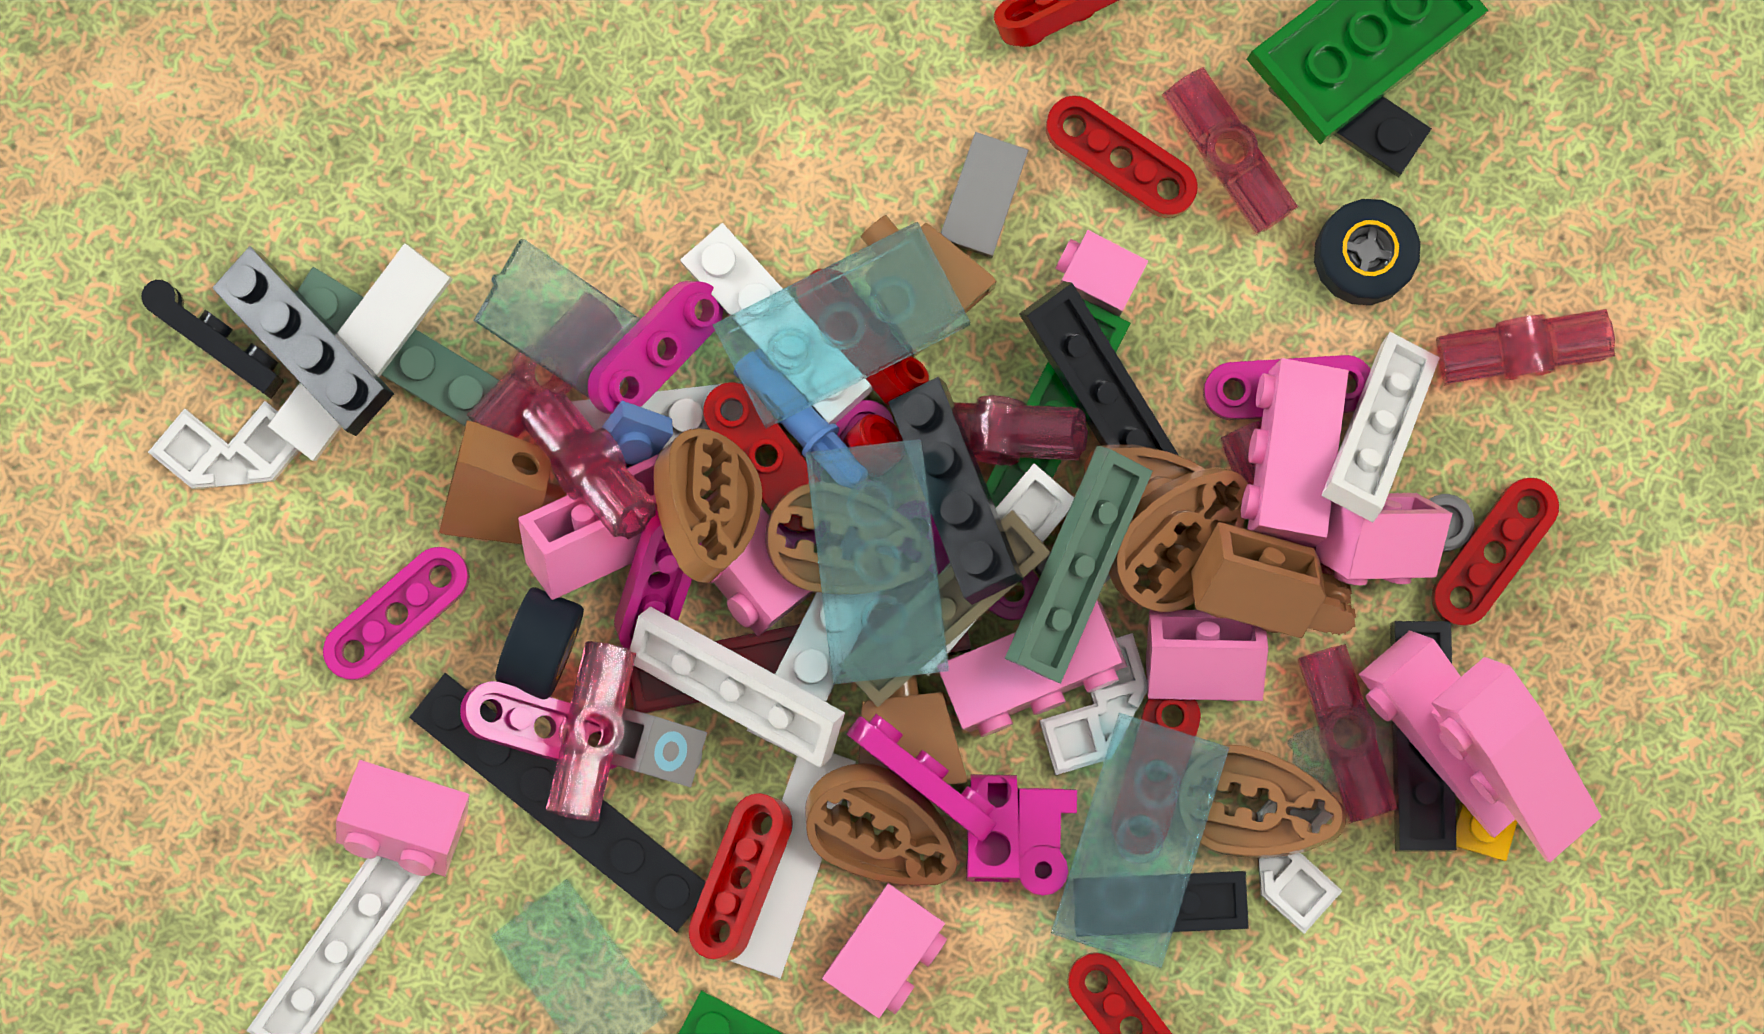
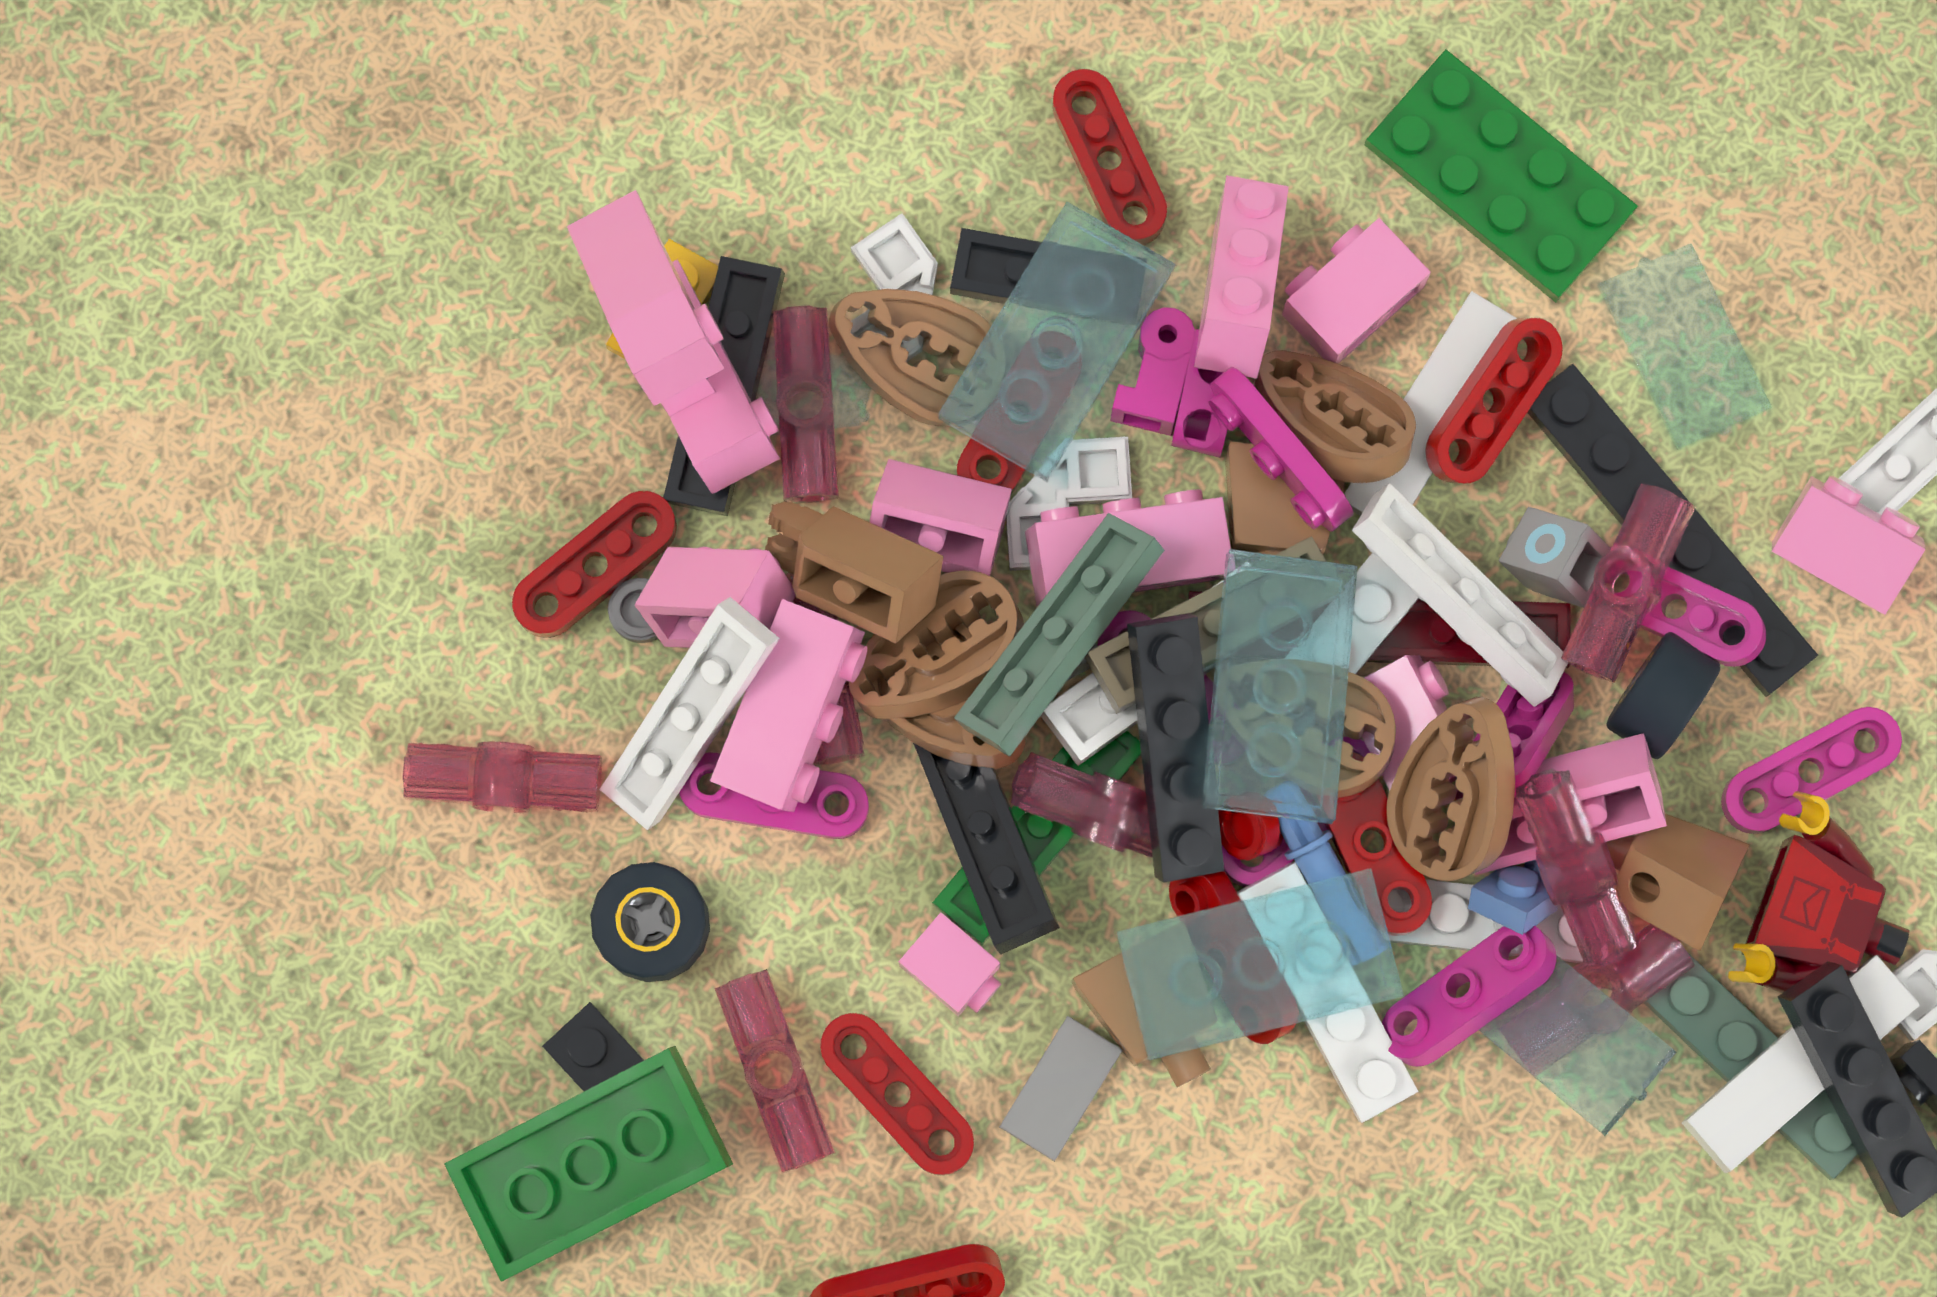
camera: 160 degrees left, 5 degrees down
(370, 487) = (1817, 906): none -> torso
(990, 932) = (1241, 276): none -> bright pink brick

